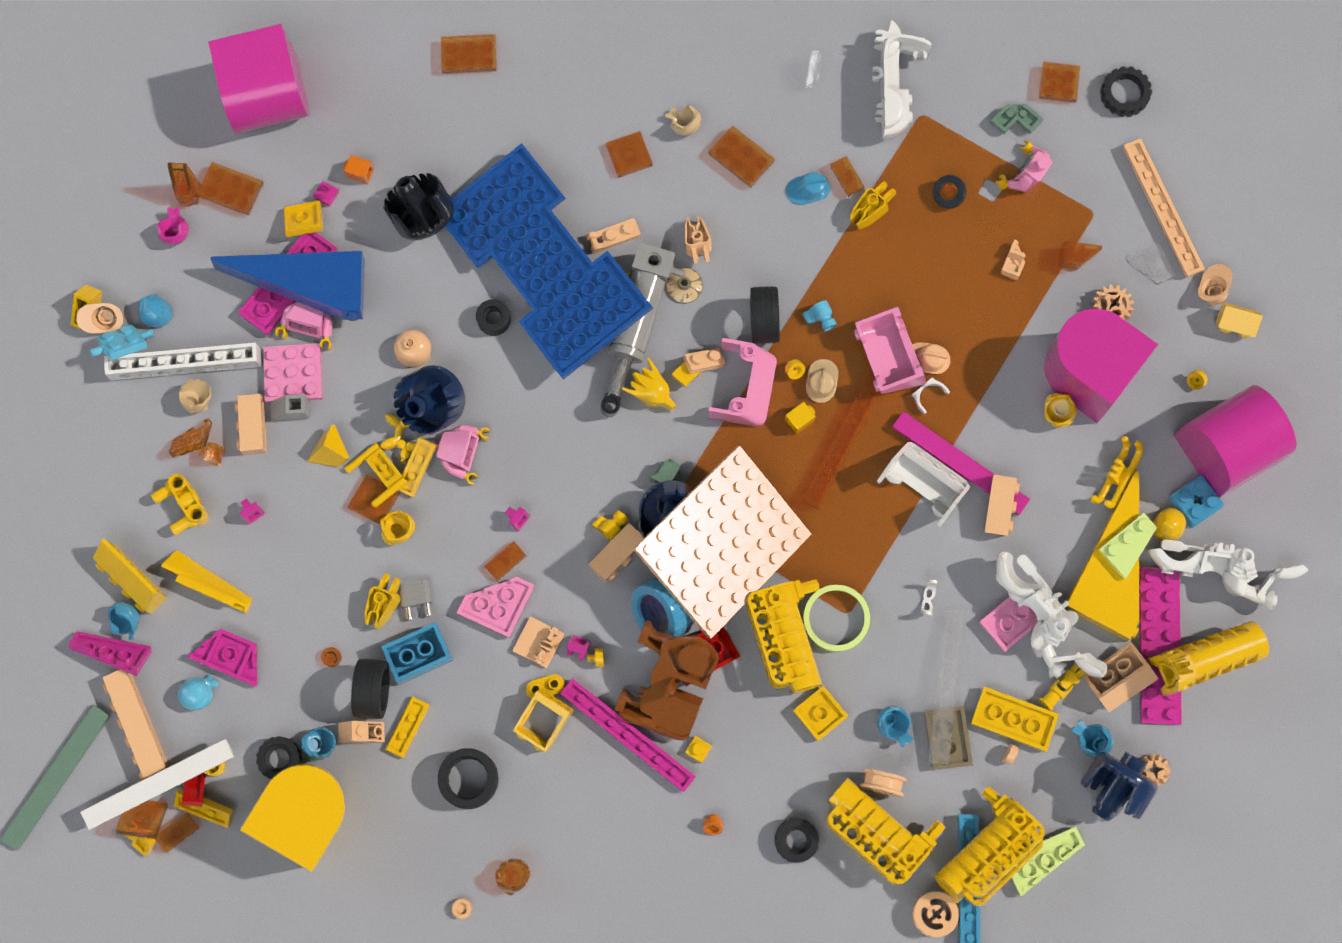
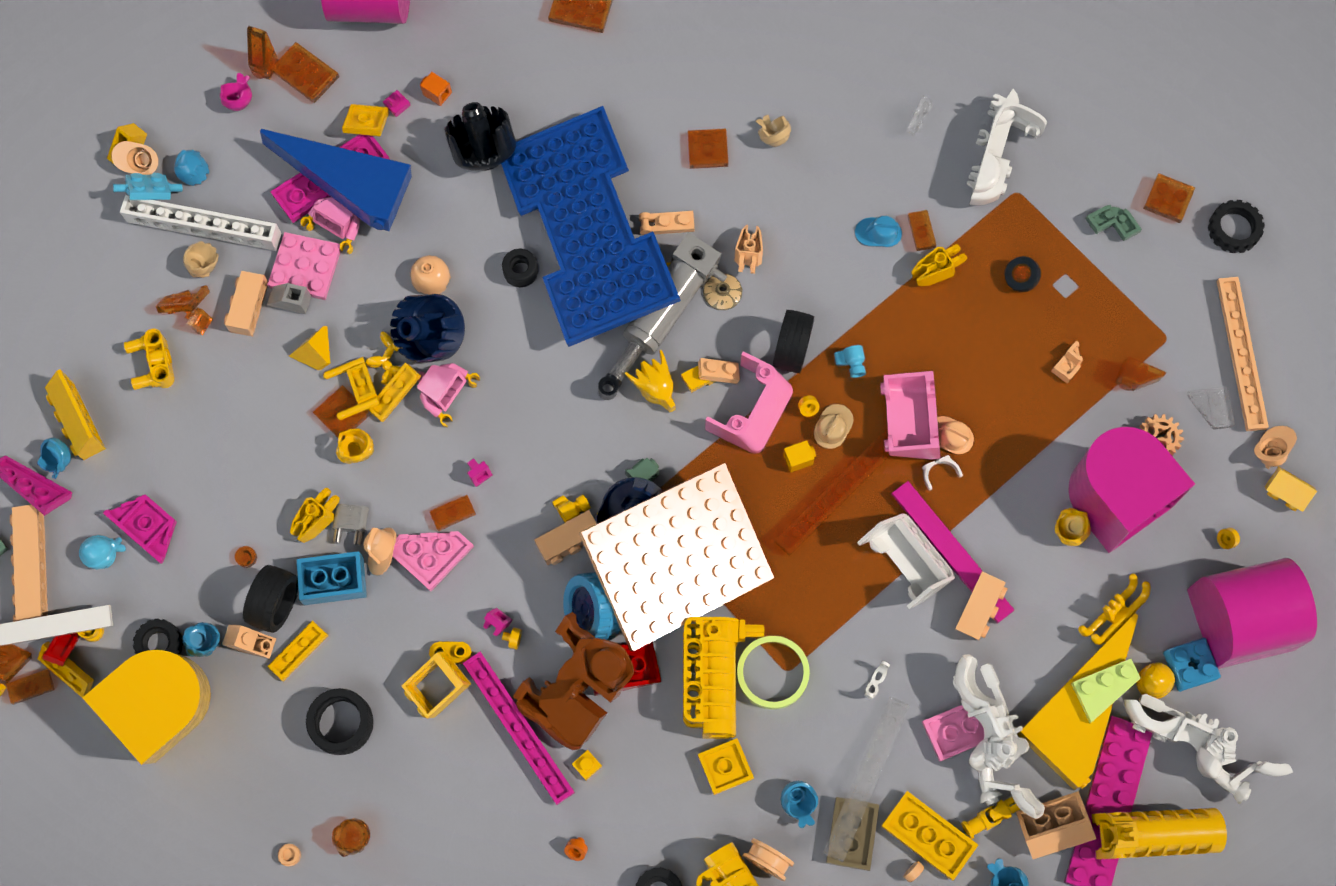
camera: 15 degrees right, 5 degrees down
(205, 582) = (147, 444): yellow wedge -> none
(251, 511) = (216, 388): dark pink tile -> none
(451, 612) = (380, 548): none -> light nougat piece
(538, 642) = (458, 604): light nougat hinge -> none
(741, 156) = (820, 181): clear orange plate -> none
(1030, 172) = (1111, 278): bright pink torso -> none

